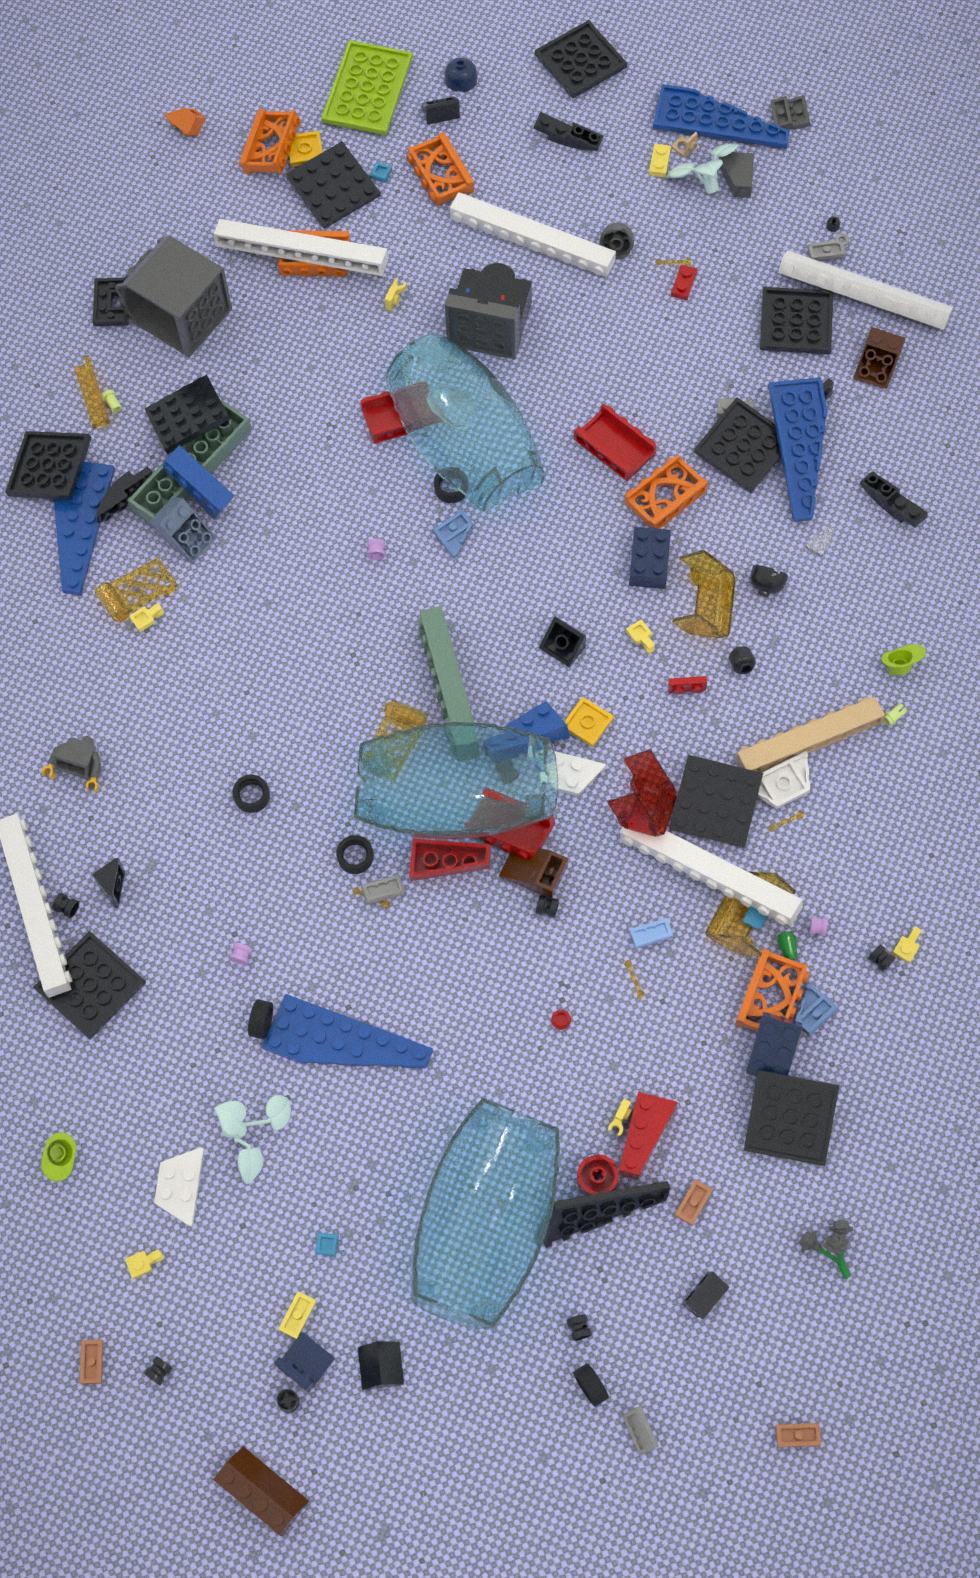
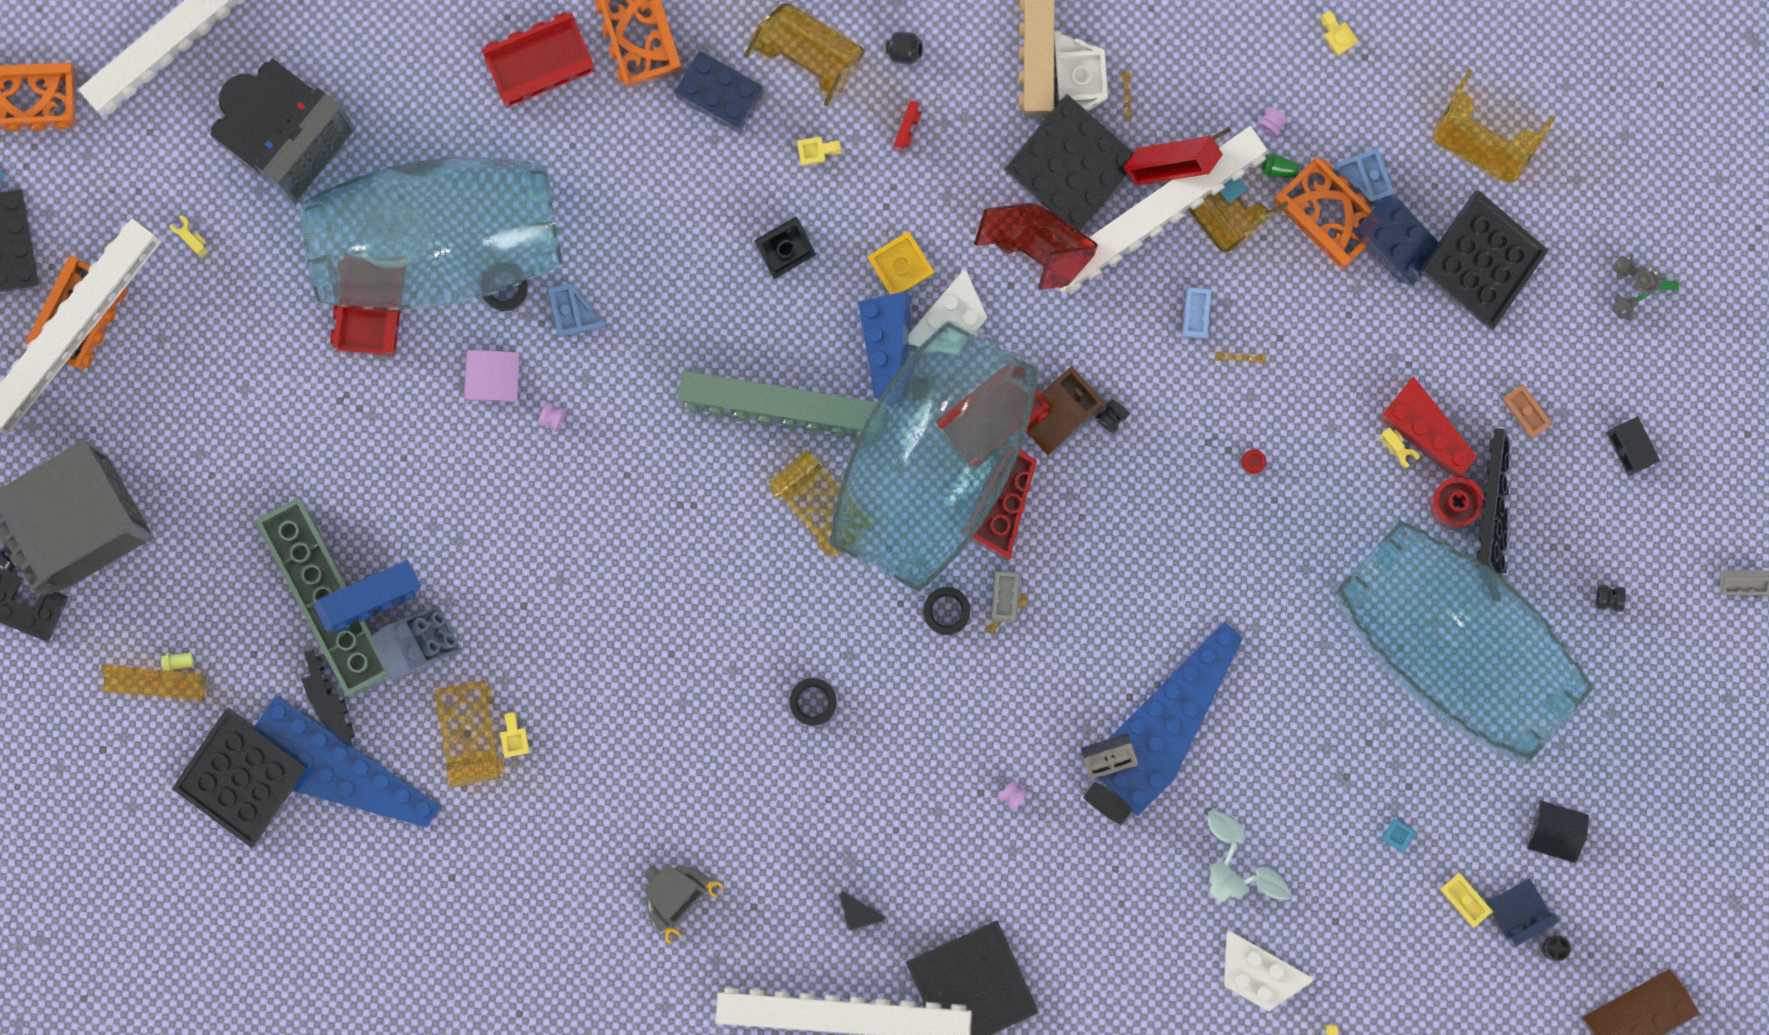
camera: 65 degrees left, 15 degrees up
(65, 905) = (859, 978): black wheel -> none
(187, 414) = (252, 572): black plate -> none
(294, 1004) = (1109, 756): none -> hinge
(386, 503) = (491, 376): none -> lavender slope
(591, 1384) = (1680, 613): black tyre -> none
(750, 860) = (1173, 160): none -> red brick
(876, 1103) = (1482, 146): none -> clear yellow windscreen
(881, 958) = (1341, 70): black wheel -> none

